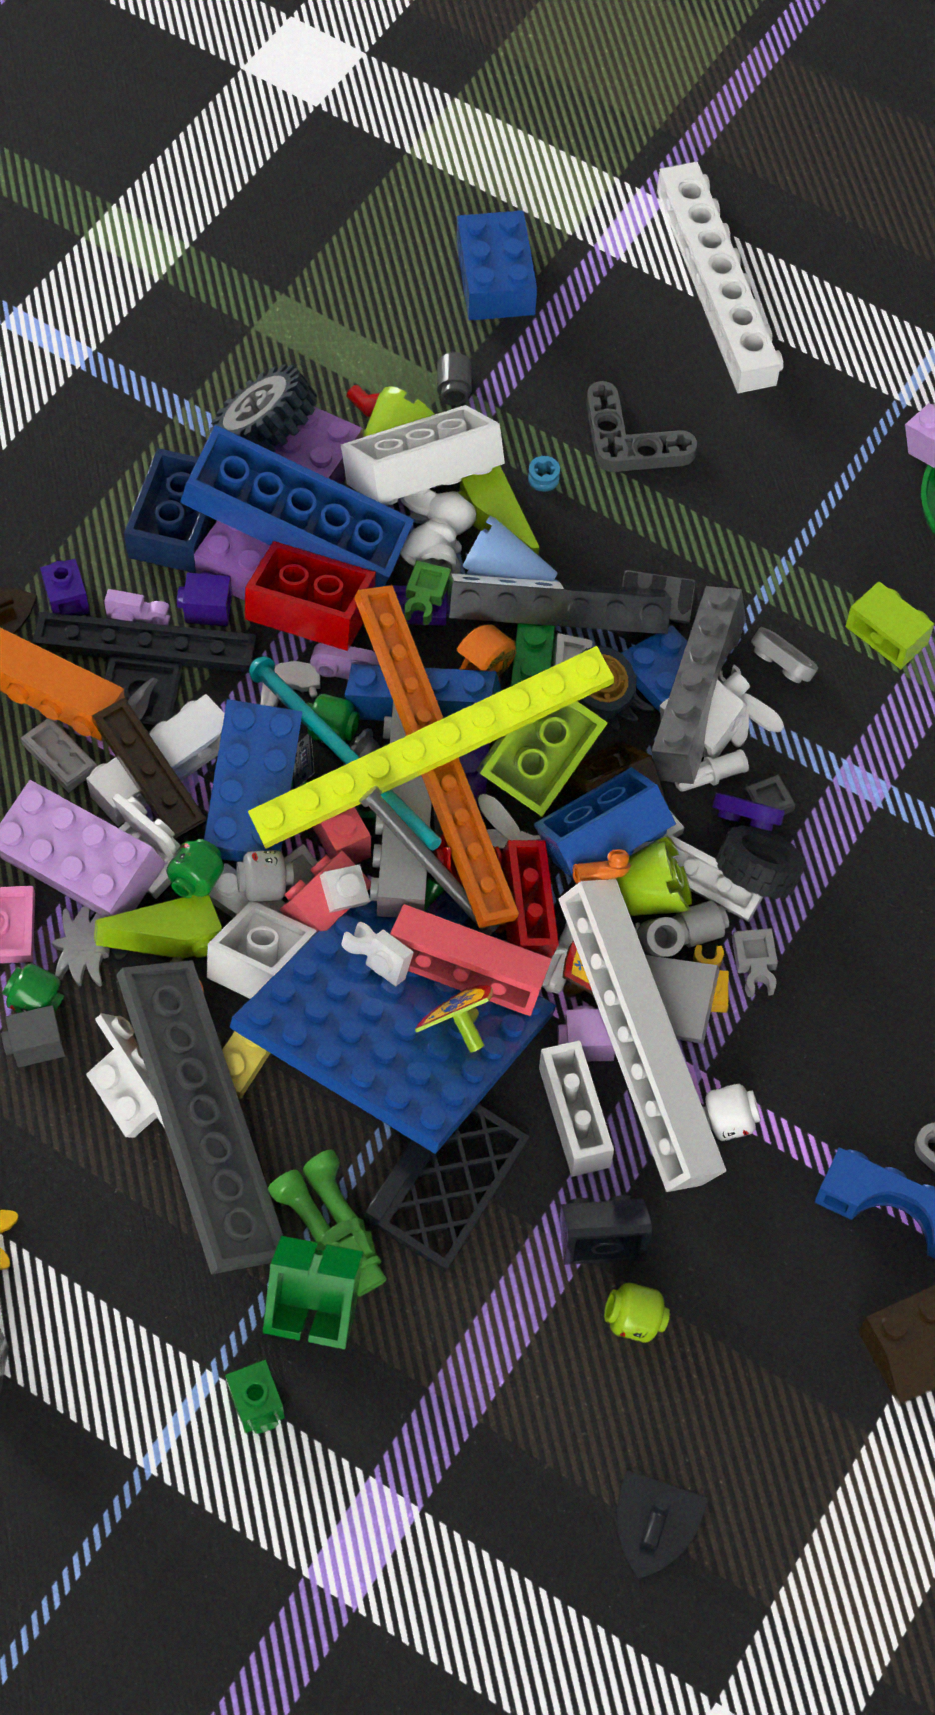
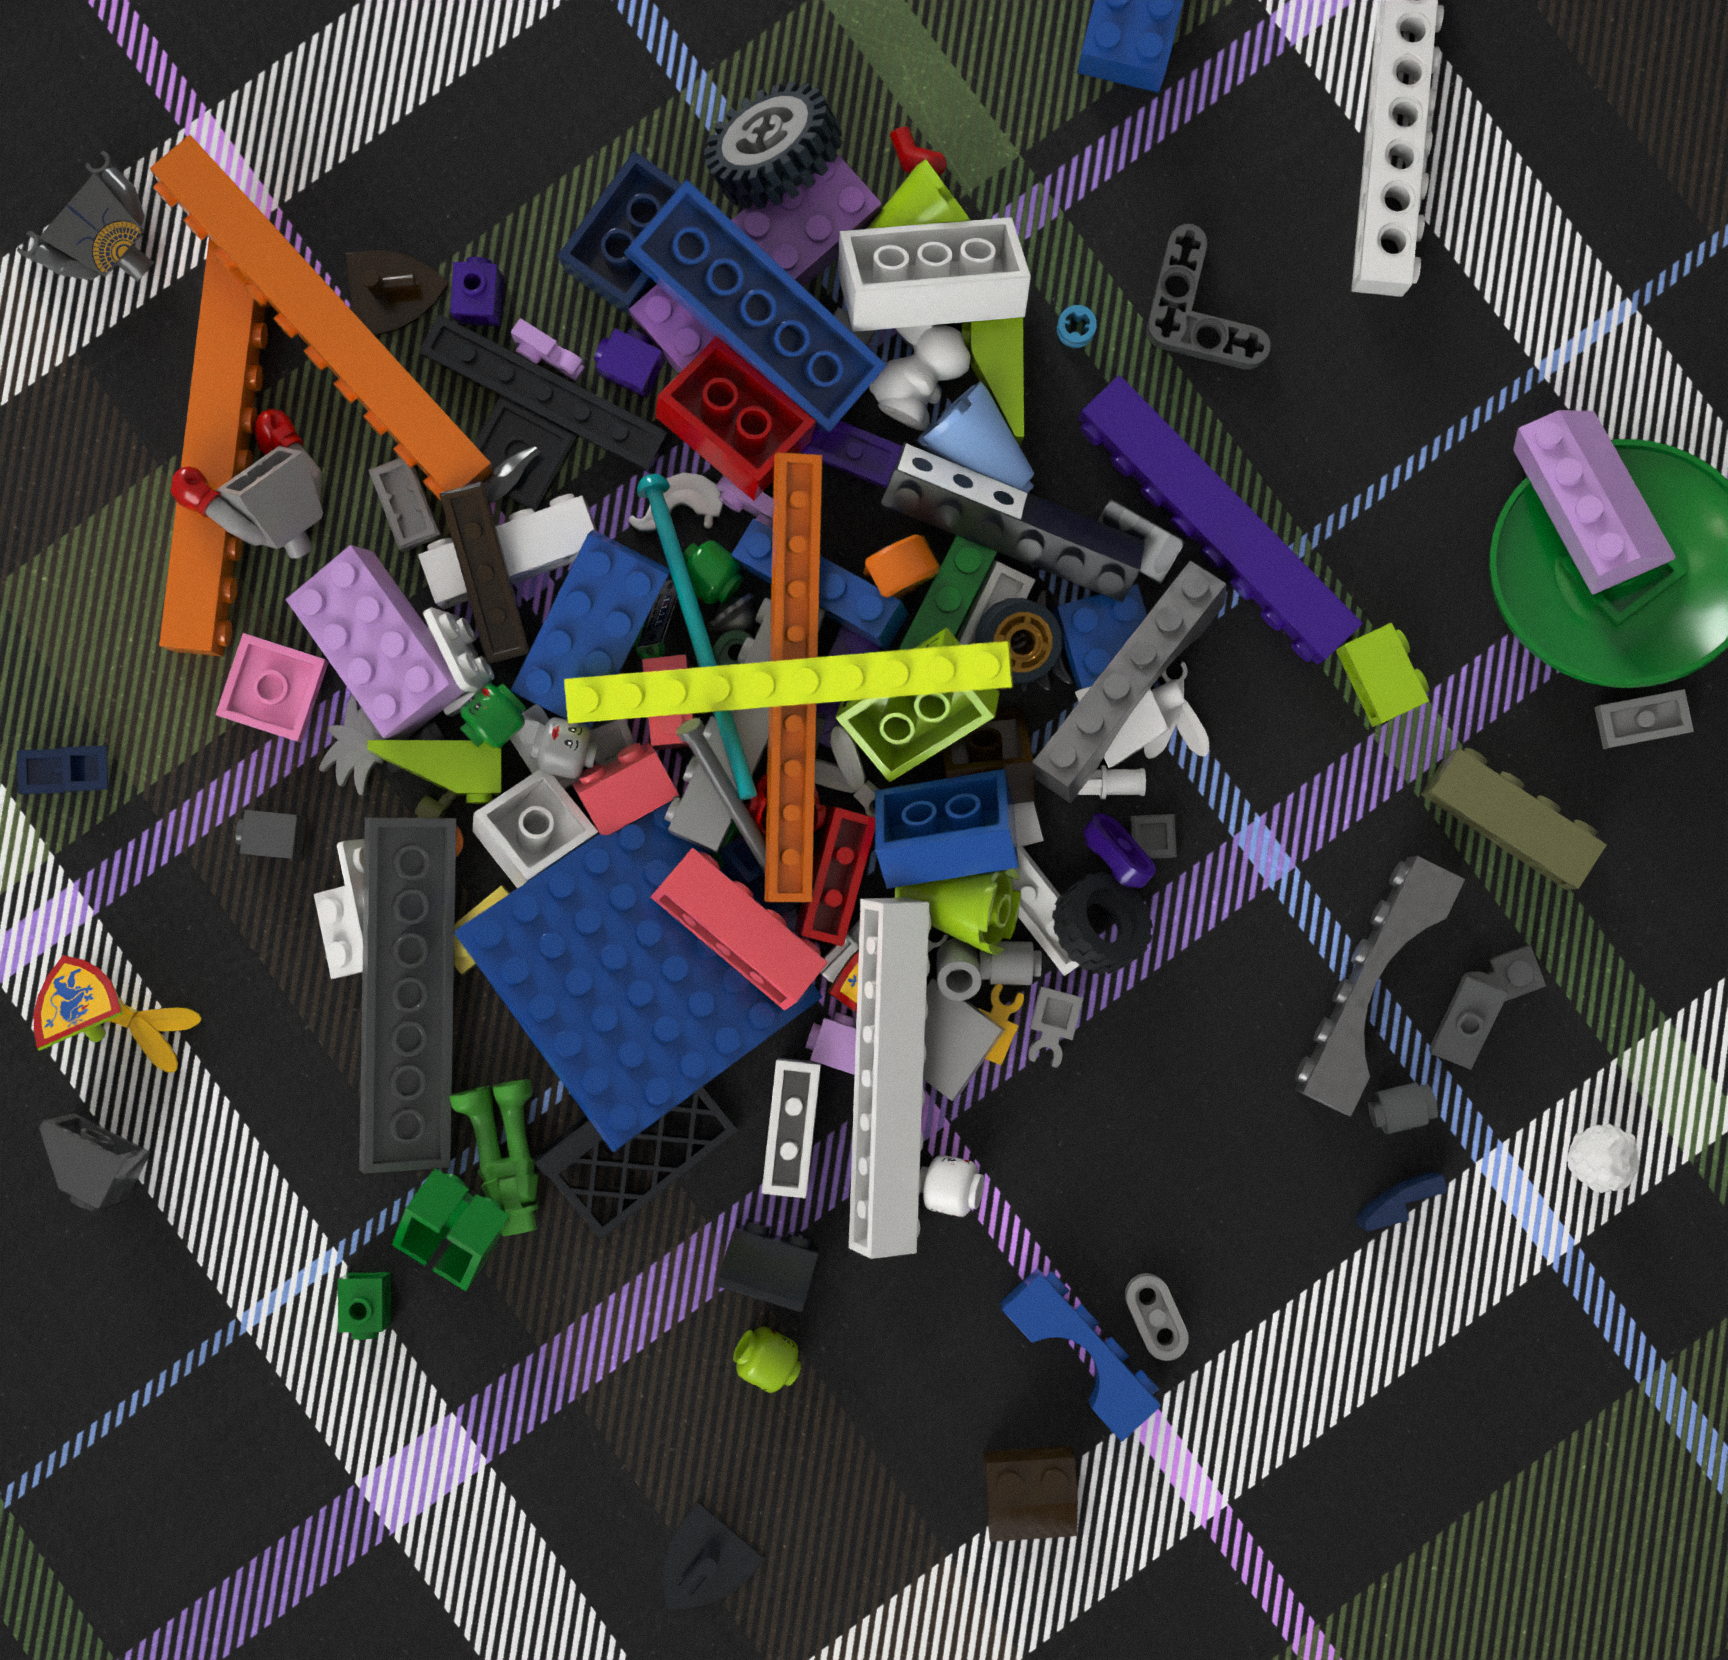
camera: 25 degrees right, 25 degrees up
(32, 989) = (287, 784): green head -> none
(344, 888) = (642, 797): white plate -> none
(384, 952) = (649, 901): white plate -> none
(426, 587) = (876, 444): bright green plate -> none
(454, 378) = (1022, 158): dark grey brick -> none
(464, 1012) = (699, 998): shield -> none
(614, 867) = (924, 893): orange arm -> none
(714, 560) = (1218, 521): none -> dark purple brick
(775, 648) = (1246, 669): light grey plate -> none

